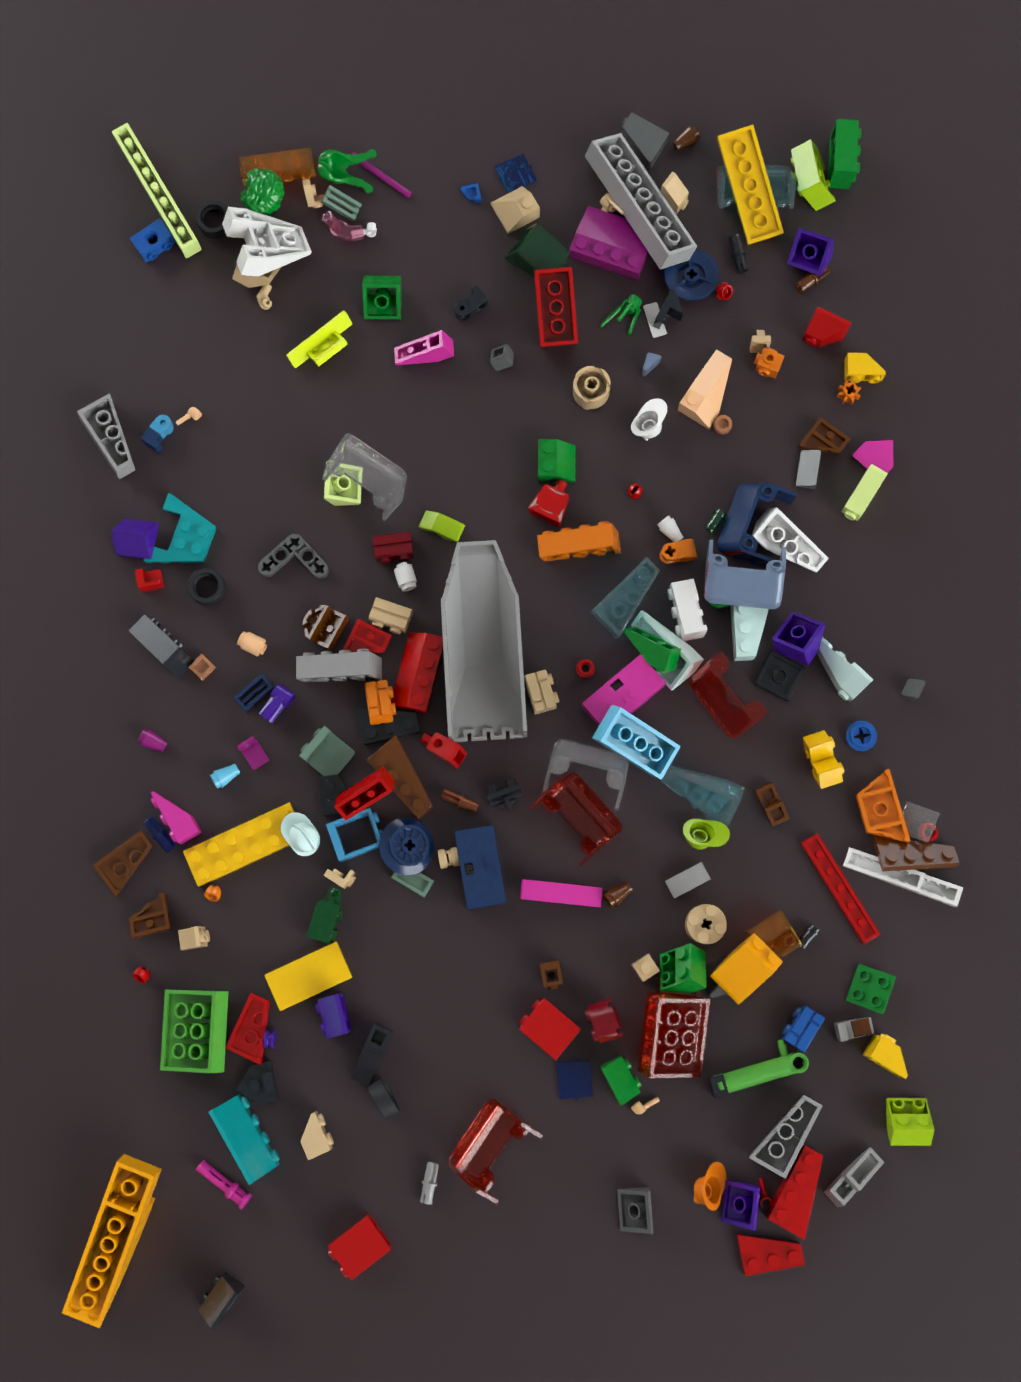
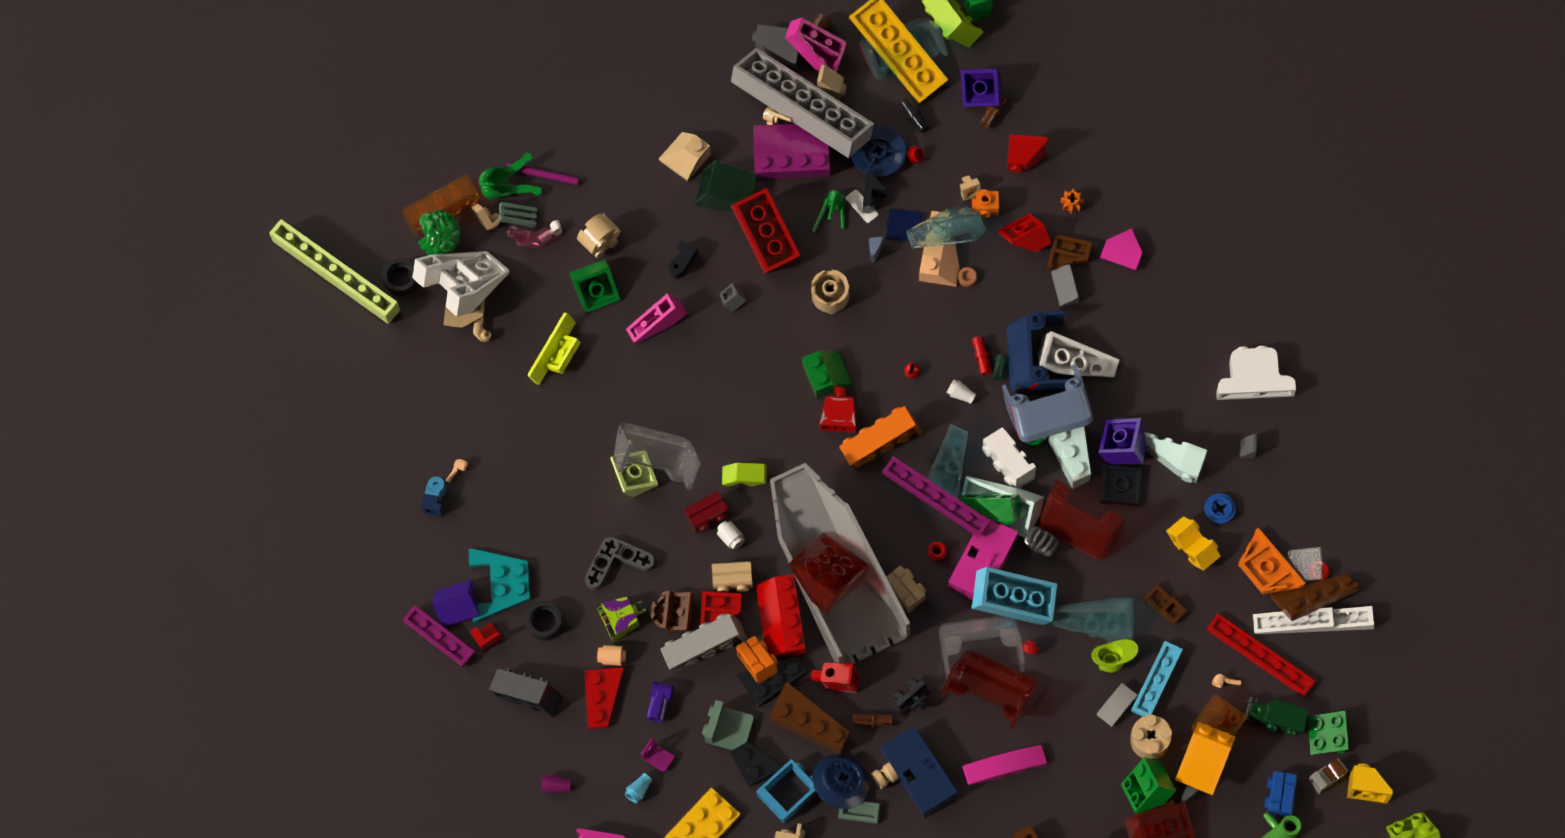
camera: 20 degrees left, 10 degrees down
(105, 429) = (388, 517): light grey wedge -> none
(108, 562) = (438, 636): none -> magenta plate
(154, 231) = (351, 309): blue brick -> none
(202, 667) = (572, 697): nougat tile -> none
(228, 675) = (601, 693): none -> red wing
(266, 682) = (625, 715): dark blue tile -> none
(274, 611) = (620, 616): none -> torso
(300, 834) = (735, 811): light aqua piece -> none
(364, 793) = (781, 745): red brick -> none
(405, 251) = (599, 235): none -> tan brick
(472, 193) = (637, 156): blue tile -> none
(473, 650) = (828, 572): none -> clear red slope
(515, 173) = (670, 122): clear blue piece -> none
(603, 620) = (935, 497): none -> magenta plate
(616, 895) = (1056, 747): reddish brown cone -> none
(631, 793) = (1030, 647): none -> red plate
(645, 967) = (1112, 799): tan brick -> none
(649, 419) = (897, 298): white piece -> none
(676, 150) = (815, 44): none -> dark pink wedge
(682, 551) = (980, 407): orange piece -> none
(683, 700) = (1041, 541): none -> dark grey gear
(685, 353) = (901, 221): none -> clear blue piece
(704, 504) = (982, 356): none -> red pin
(723, 371) = (947, 227): none -> clear light blue wedge
(734, 872) = (1156, 679): none -> medium azure plate
(791, 896) = (1220, 679): none -> light nougat hand
(794, 406) = (1026, 233): none -> red slope
(833, 955) = (1280, 716): none -> dark green hinge
(862, 367) = (1074, 174): yellow slope -> none
(864, 492) = (1125, 286): yellowish green slope -> none
(948, 624) = (1255, 375): none -> white brick

